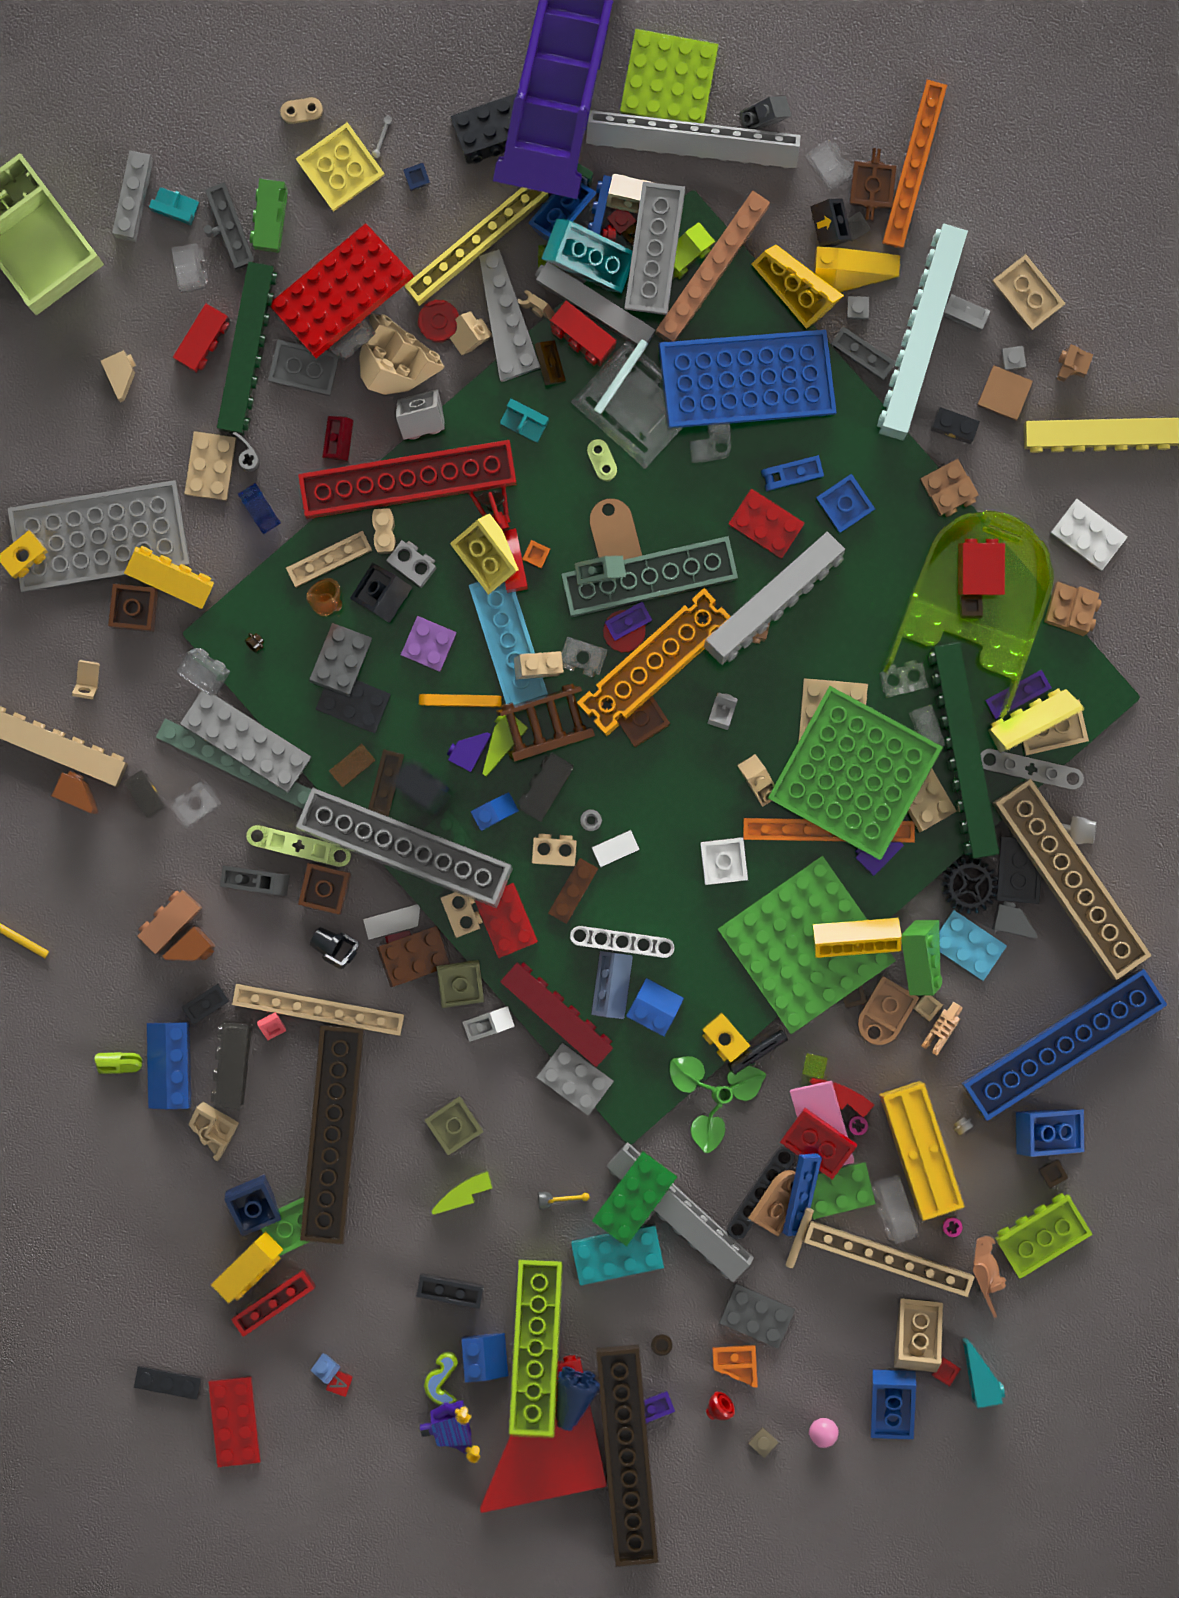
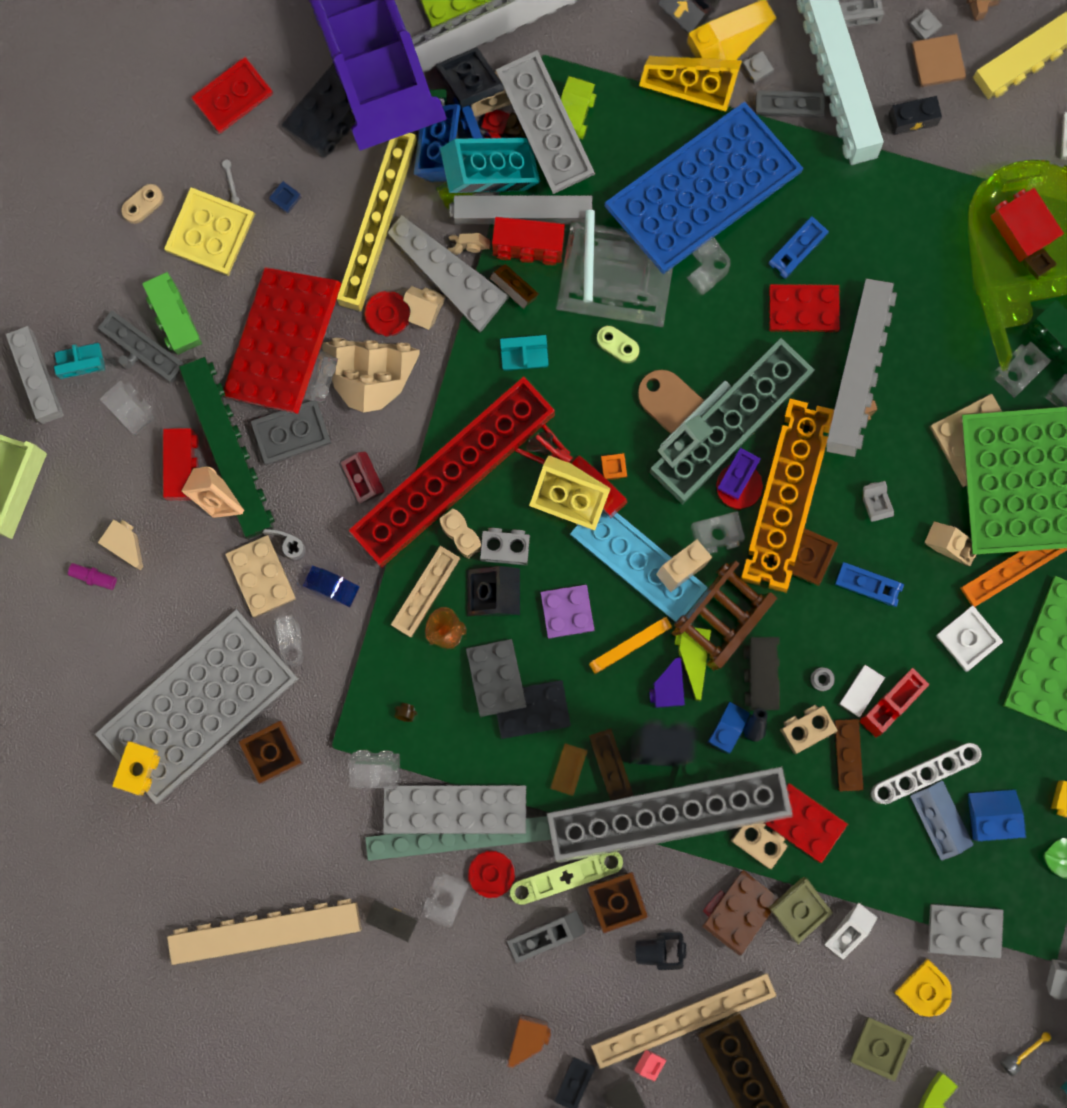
camera: 30 degrees left, 5 degrees down
(75, 792) = (325, 961): dark orange slope -> none
(80, 383) = (92, 576): none -> magenta pin
(86, 679) = (269, 847): tan bracket -> none
(169, 577) = (287, 702): yellow brick -> none
(169, 921) = (490, 1027): nougat brick -> none
(201, 527) = (289, 638): none -> clear piece
(211, 377) = (211, 493): none -> light nougat slope
(243, 807) = (491, 874): none -> red tile
(392, 921) = (698, 892): white sticker -> none
(420, 414) = (426, 407): light grey slope -> none
(426, 67) = (232, 95): none -> red plate
(515, 823) = (756, 725): none -> black cone
(517, 1105) = (926, 990): none -> yellow tile
(556, 1014) = (910, 881): dark red brick -> none
(620, 173) = (469, 77): none -> black plate
(634, 873) = (894, 702): none -> red slope
(638, 551) = (707, 404): none -> light aqua bar
(674, 770) = (868, 584): none -> blue plate
(713, 267) = (607, 109): nougat brick -> none
(845, 503) = (864, 244): blue plate -> none
(949, 488) = (948, 173): medium nougat plate -> none

